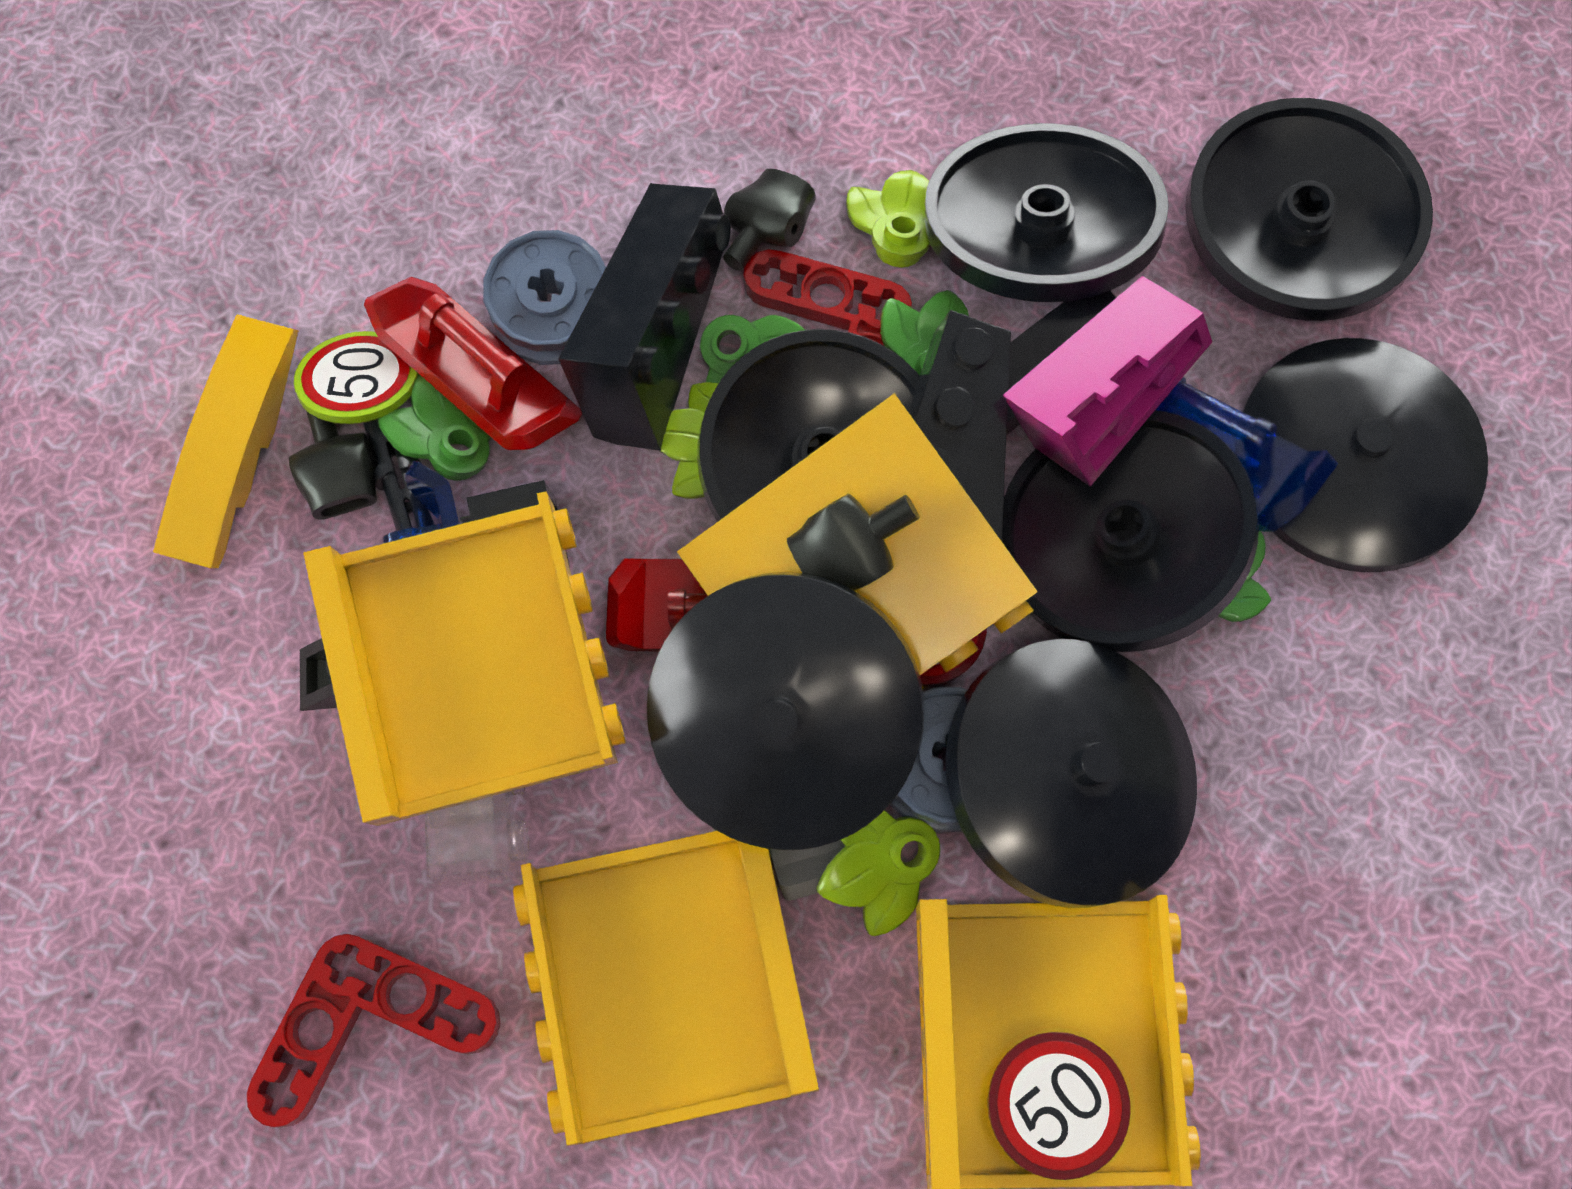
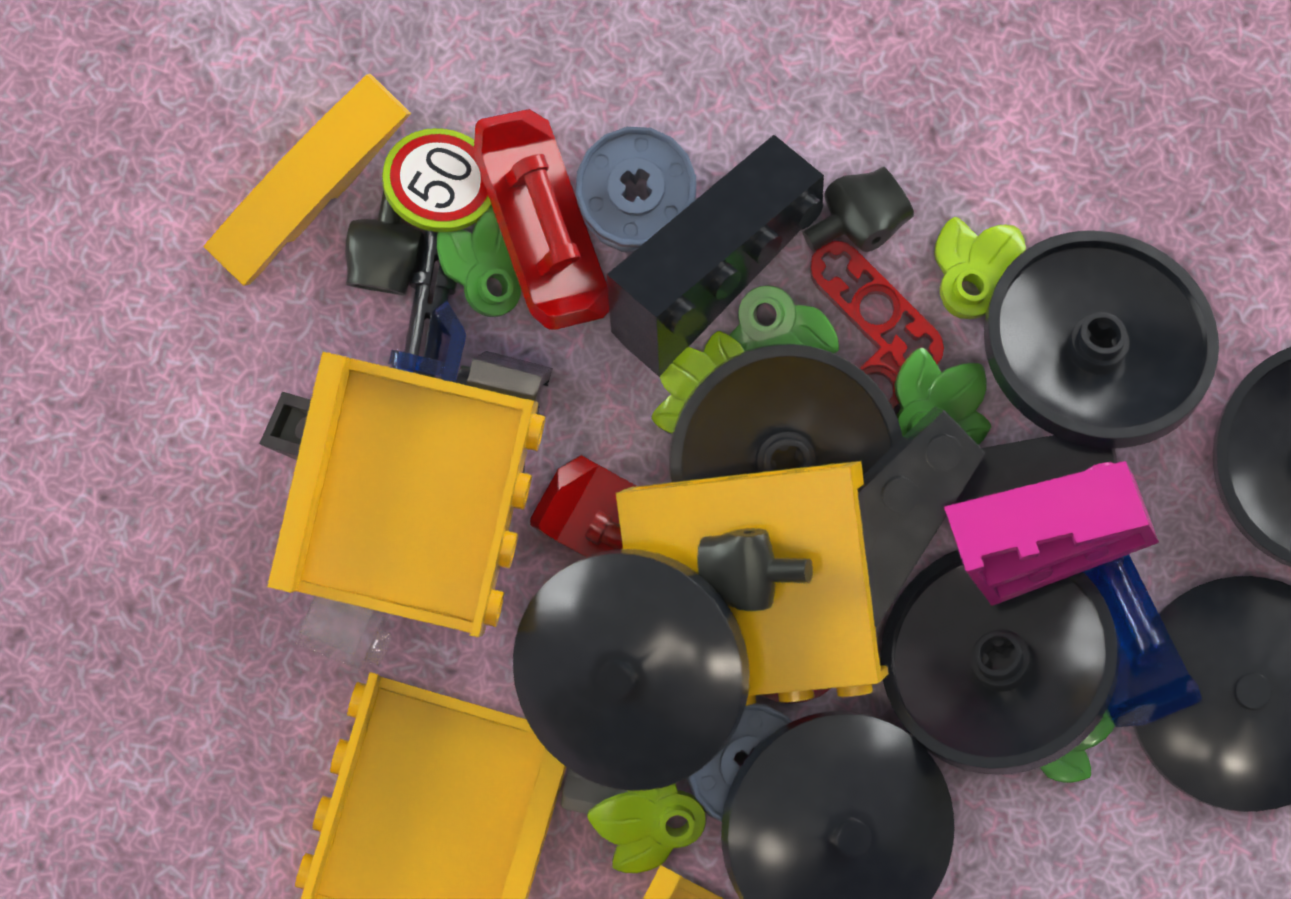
camera: 30 degrees right, 10 degrees up
(344, 1006) = (183, 703): red beam -> none

